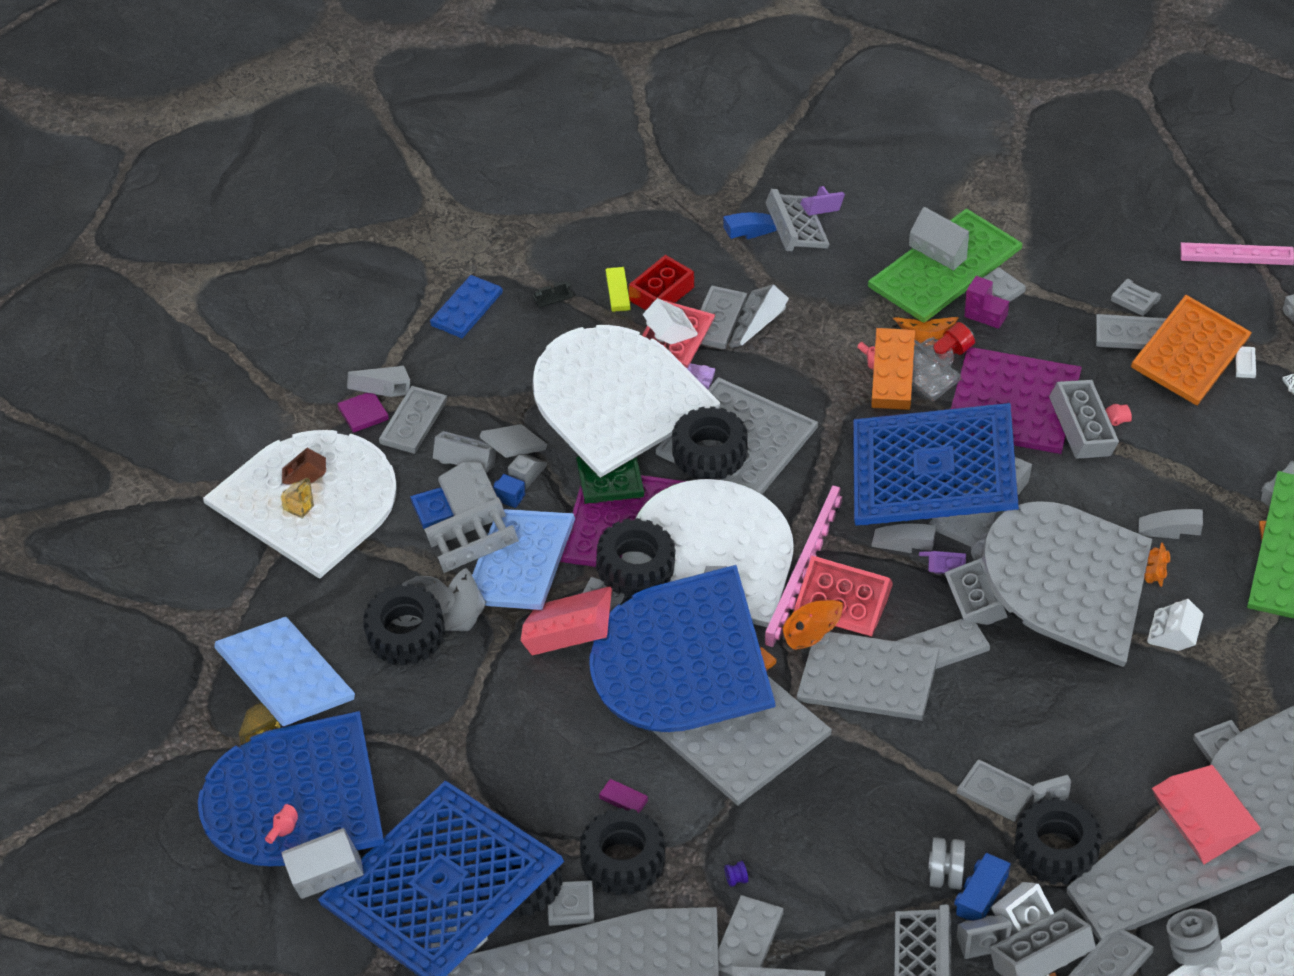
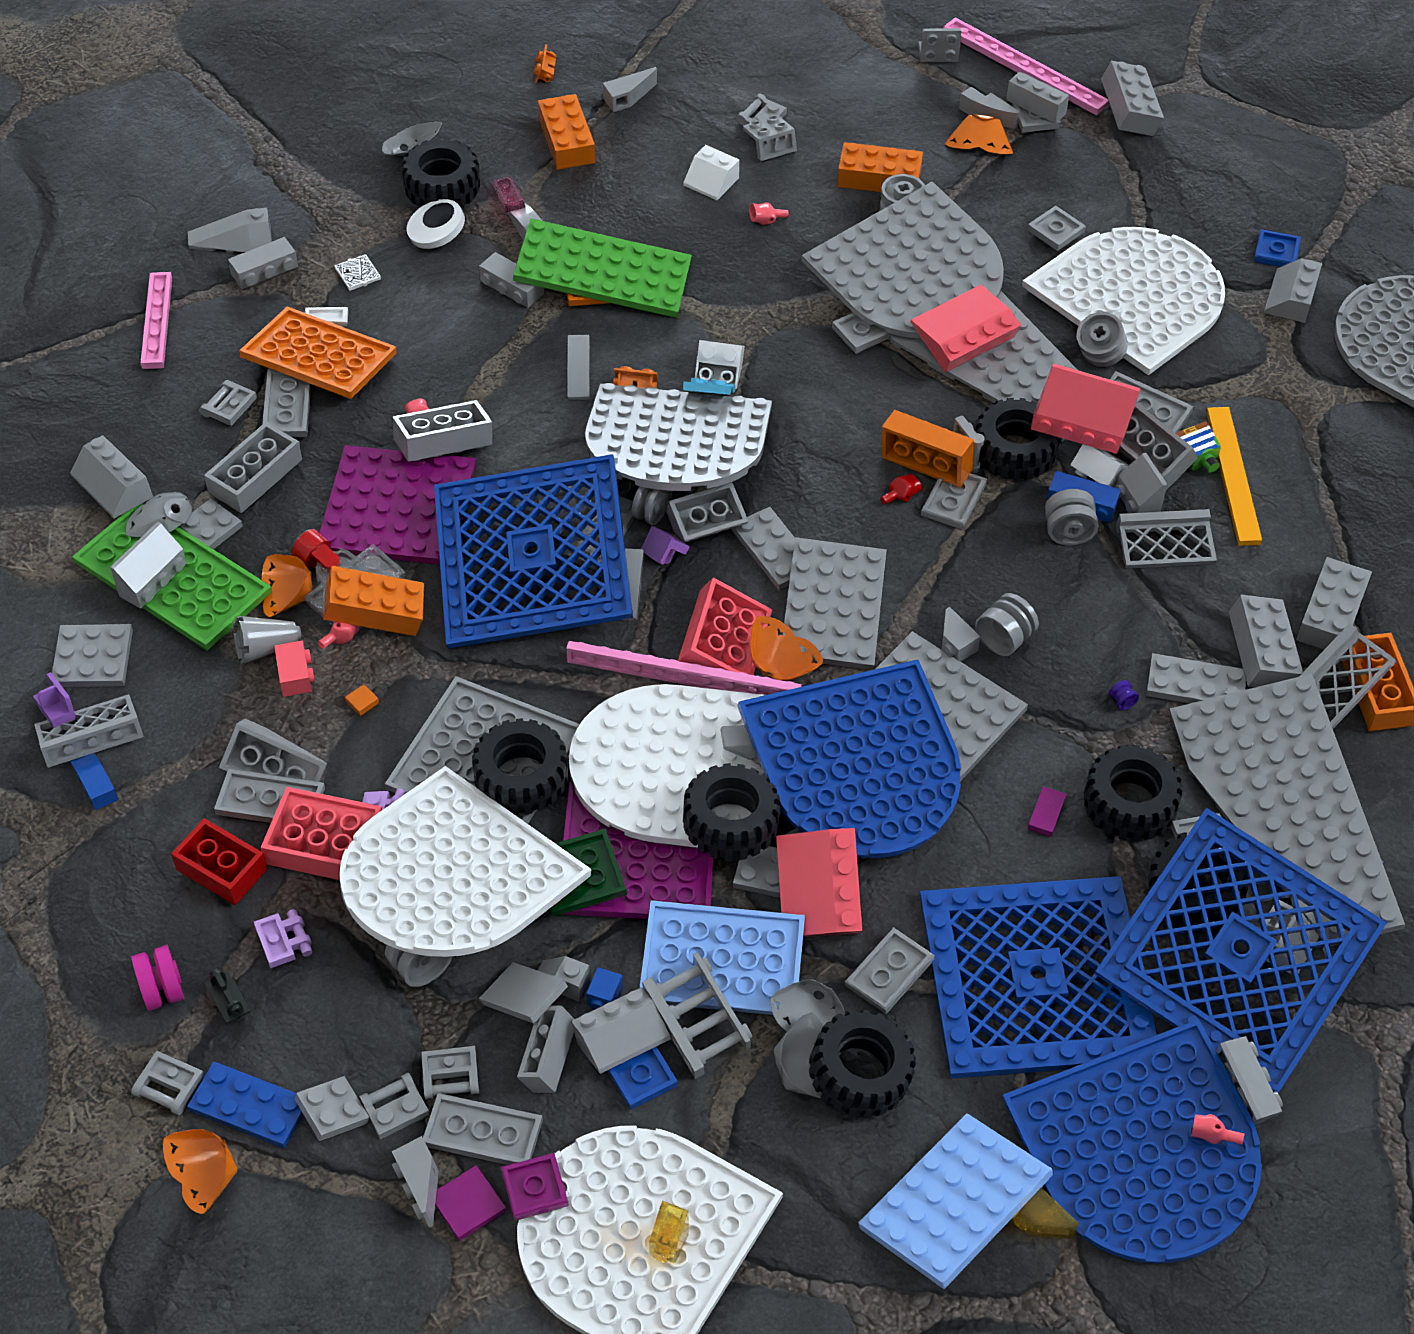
camera: 100 degrees left, 5 degrees up
(305, 465) = (608, 1243): copper slope -> none
(359, 438) = (534, 1186): none -> magenta tile
(408, 703) = (1014, 899): none -> blue plate
(423, 286) = (206, 1165): none -> orange piece
(440, 379) = (397, 1113): none -> light grey plate
(449, 343) = (331, 1108): none -> light grey plate
(470, 405) = (450, 1064): none -> light grey plate
(489, 664) = (889, 970): none -> light grey tile
(495, 269) = (170, 1074): none -> light grey plate
(566, 252) = (159, 977): none -> dark pink wheel
(593, 317) = (275, 940): none -> lavender plate
(617, 289) = (213, 921): neon yellow tile -> none
(668, 322) = (317, 826): white slope -> none
(806, 371) = (362, 700): none -> orange tile
(820, 758) = (958, 637): none -> light grey slope
(821, 789) = (1007, 624): none -> light grey wheel
(839, 330) = (293, 668): none -> coral brick
(868, 307) = (259, 635): none -> light grey cone
(870, 225) = (92, 655): none -> light grey plate
(984, 306) = (250, 529): magenta brick -> none
(1005, 748) = (902, 488): none -> red piece
(1011, 252) = (156, 509): none -> light grey piece
(1043, 760) = (927, 448): none -> orange brick
(1048, 228) = (110, 477): none -> light grey slope
(1052, 866) = (1084, 408): none -> coral slope
(1053, 306) = (253, 467): none -> light grey brick
(1134, 608) = (704, 385): none -> medium azure plate

